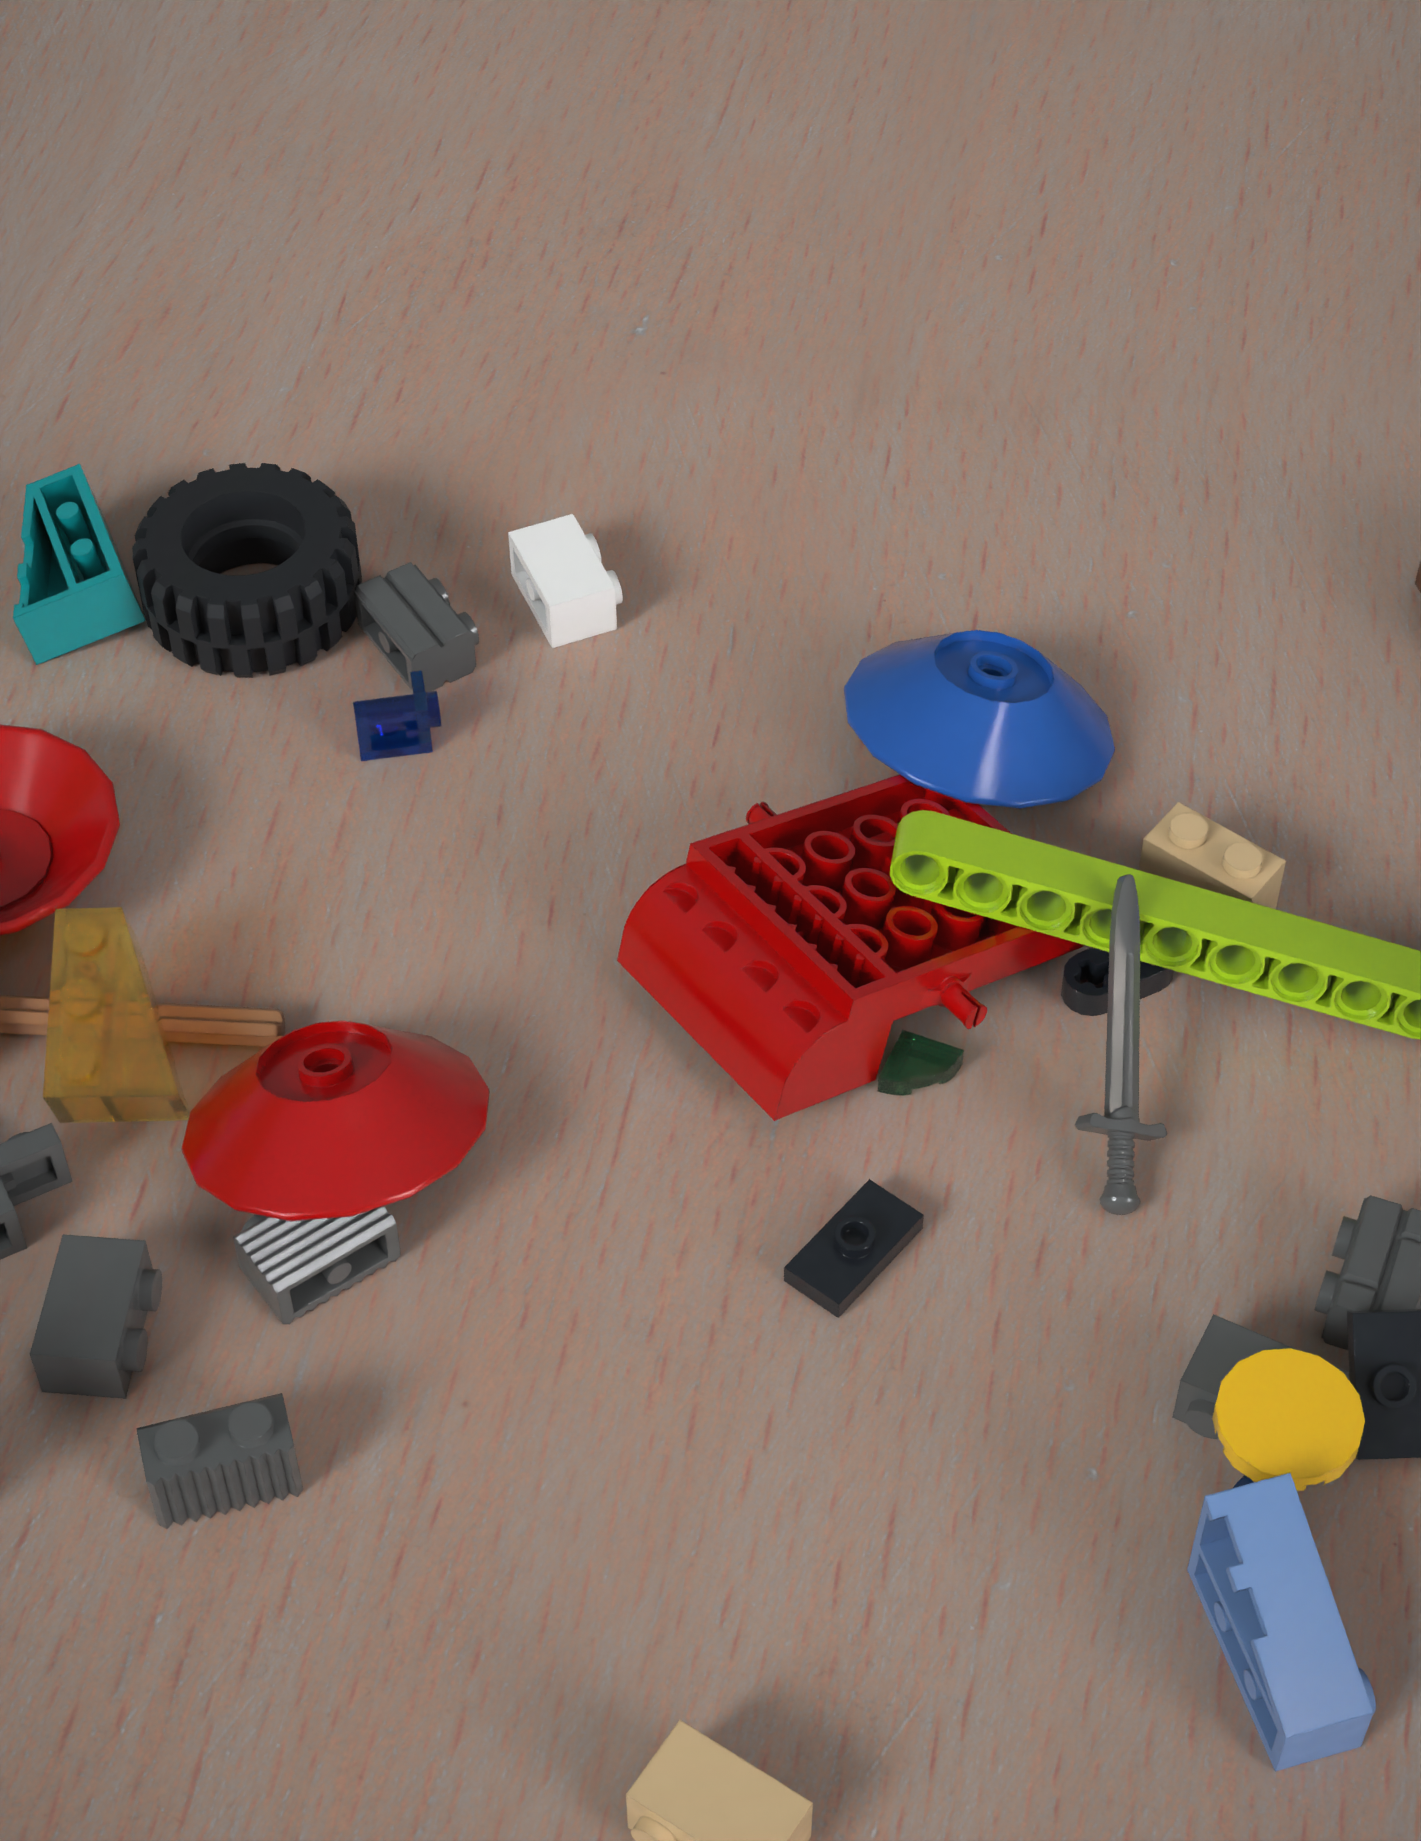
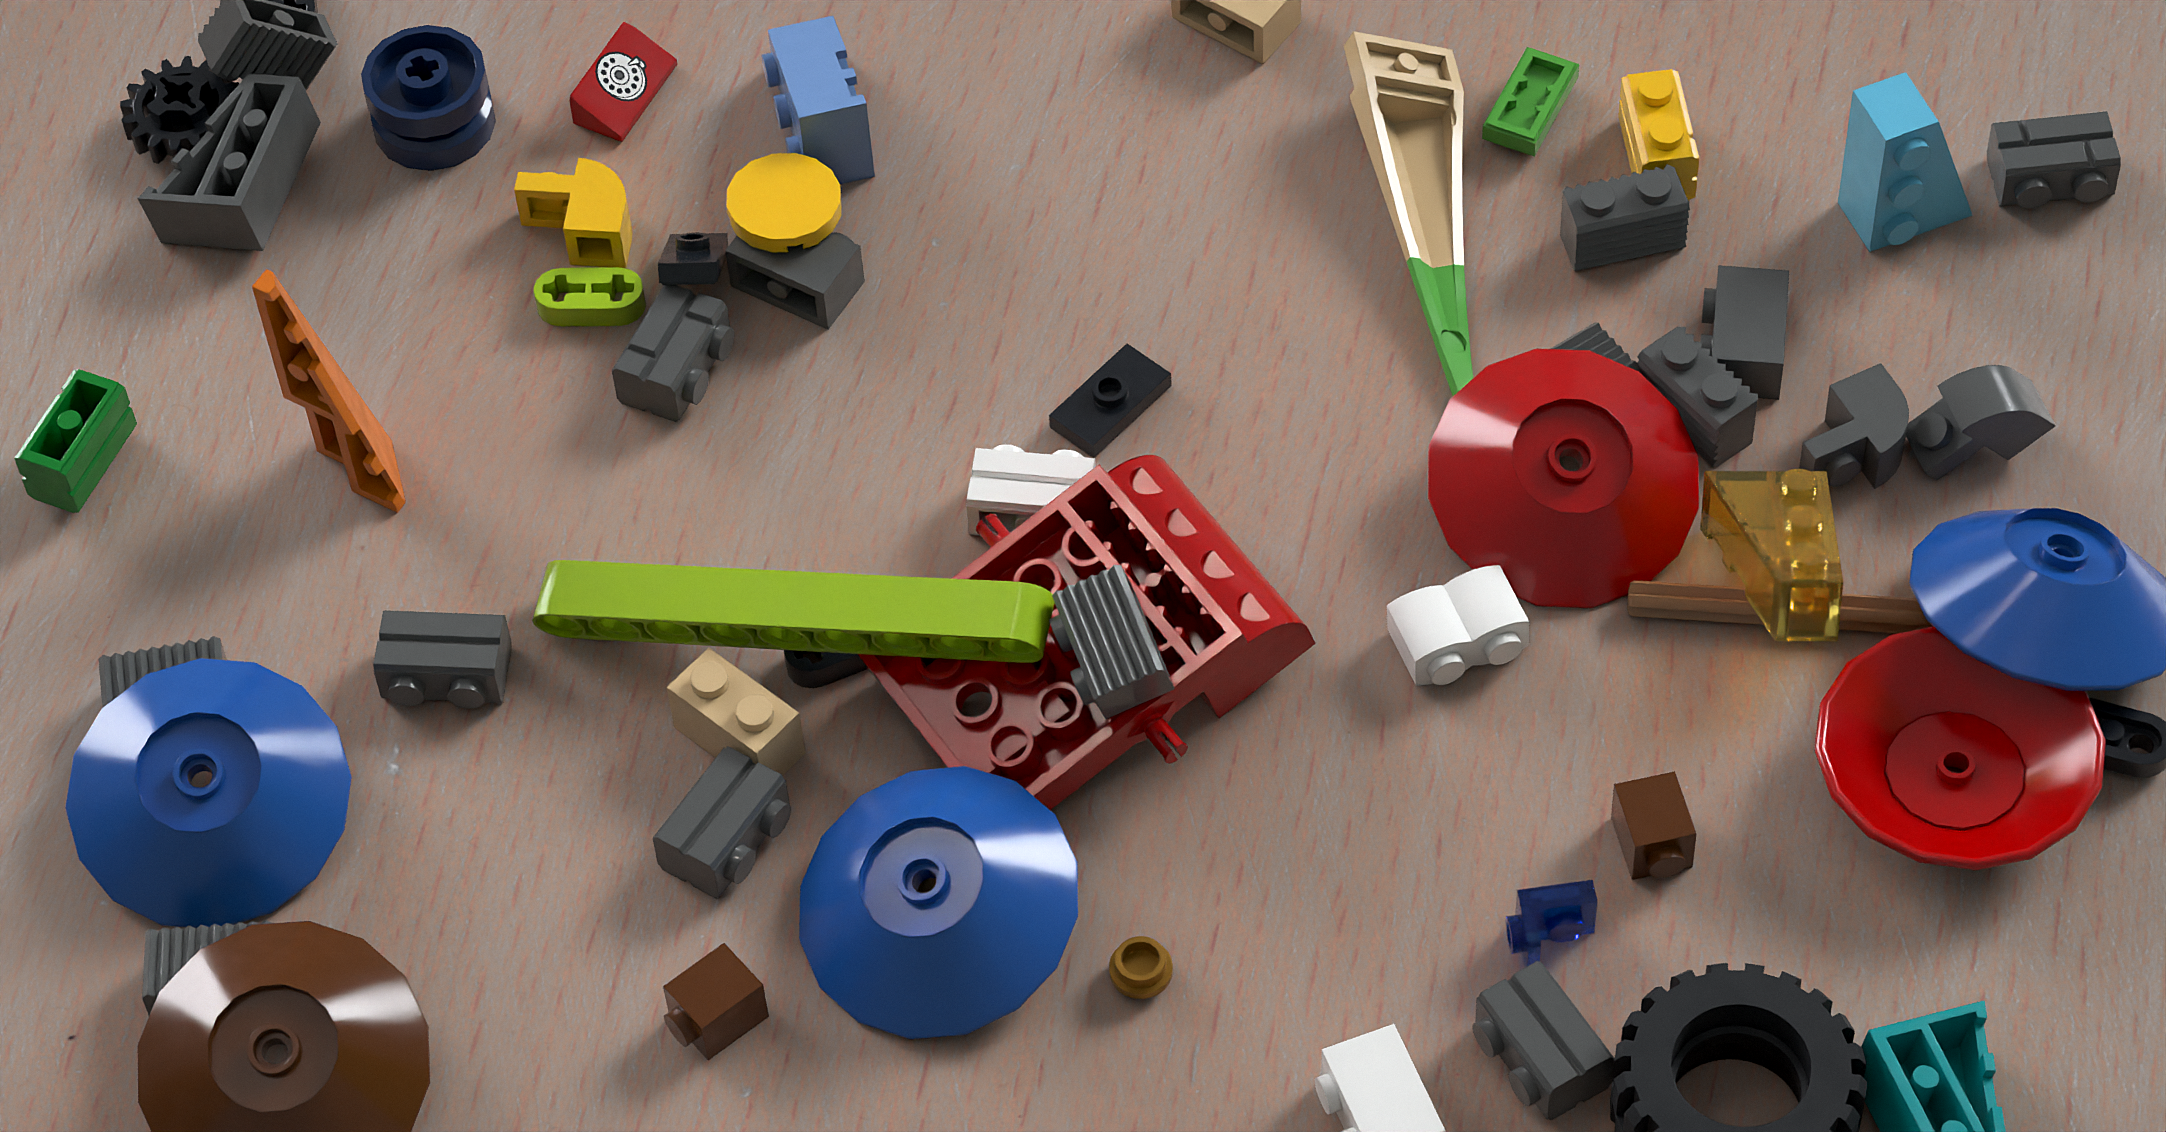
camera: 175 degrees left, 5 degrees up
(157, 1581) = (1658, 126): none -> yellow brick
(182, 1232) = (1708, 398): none -> dark grey brick
(290, 799) = (1653, 826): none -> reddish brown brick
(318, 1659) = (1530, 101): none -> bright green plate
(466, 981) = (1458, 626): none -> white brick
(483, 1586) = (1413, 128): none -> tan plate
(783, 690) = (1140, 968): none -> pearl gold plate
(825, 827) = (1110, 641): none -> dark grey brick
(932, 1114) = (1019, 483): none -> white brick
(1121, 1105) = (860, 479): dark grey sword -> none
(1172, 647) = (714, 1002): none -> reddish brown brick
(1206, 773) = (723, 823): none -> dark grey brick

